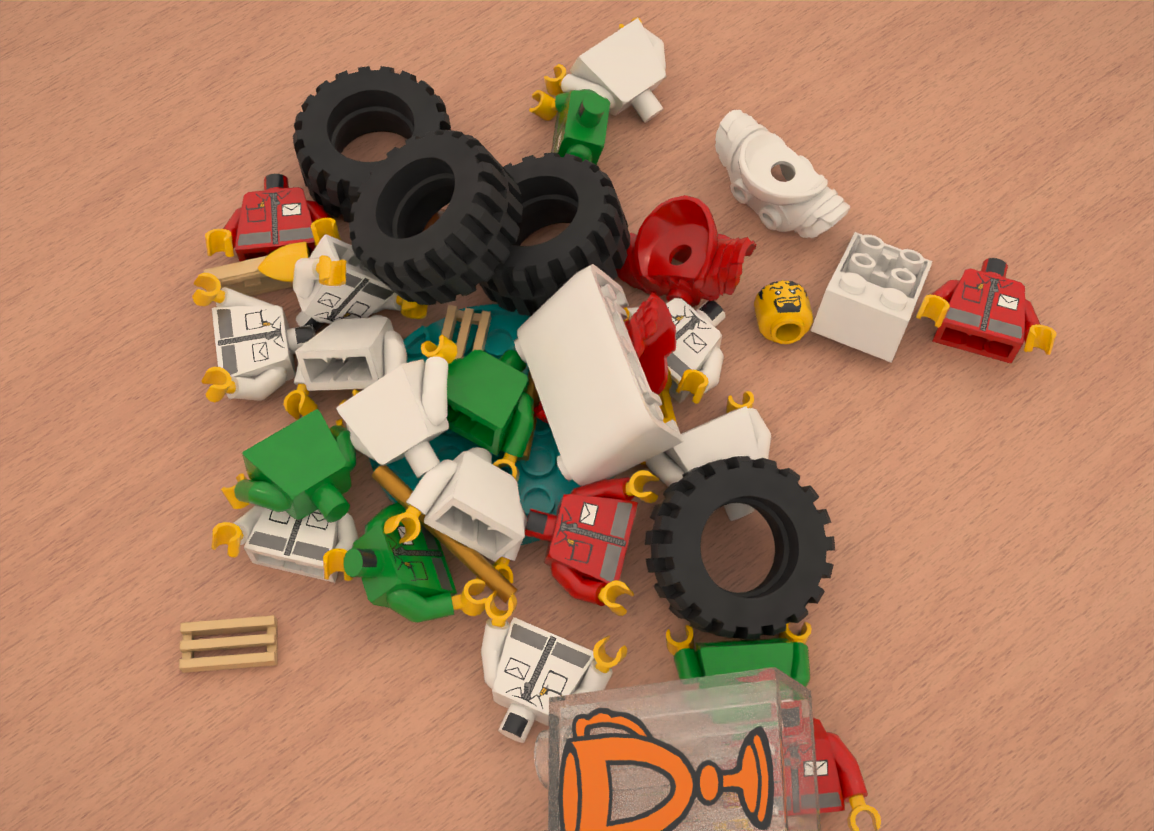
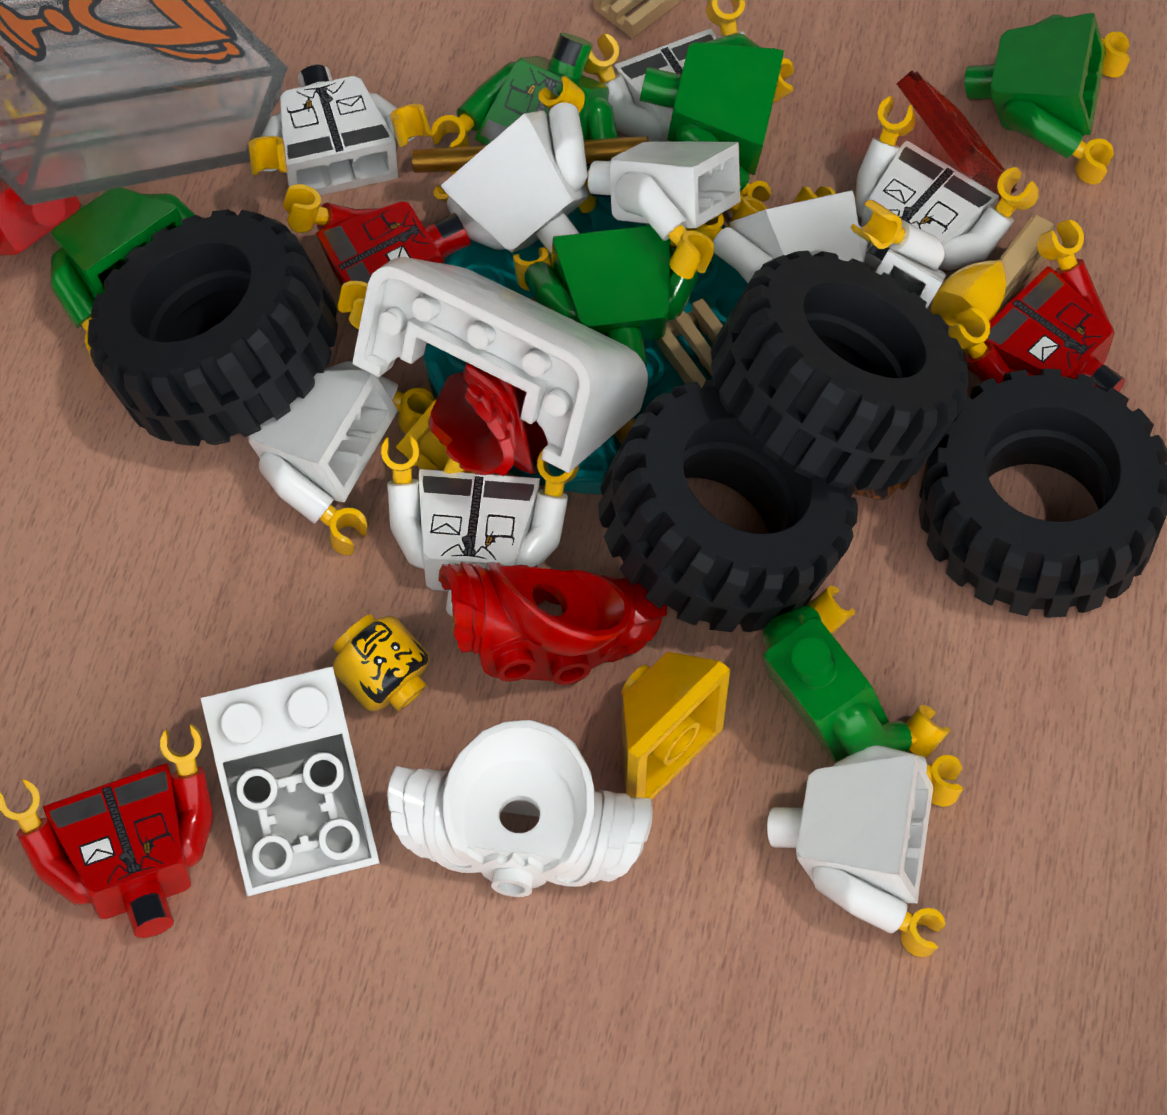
camera: 140 degrees right, 5 degrees down
(91, 366) = (1050, 85): none -> green torso
(188, 362) = (953, 131): none -> clear red tile
(671, 165) = (669, 718): none -> yellow slope

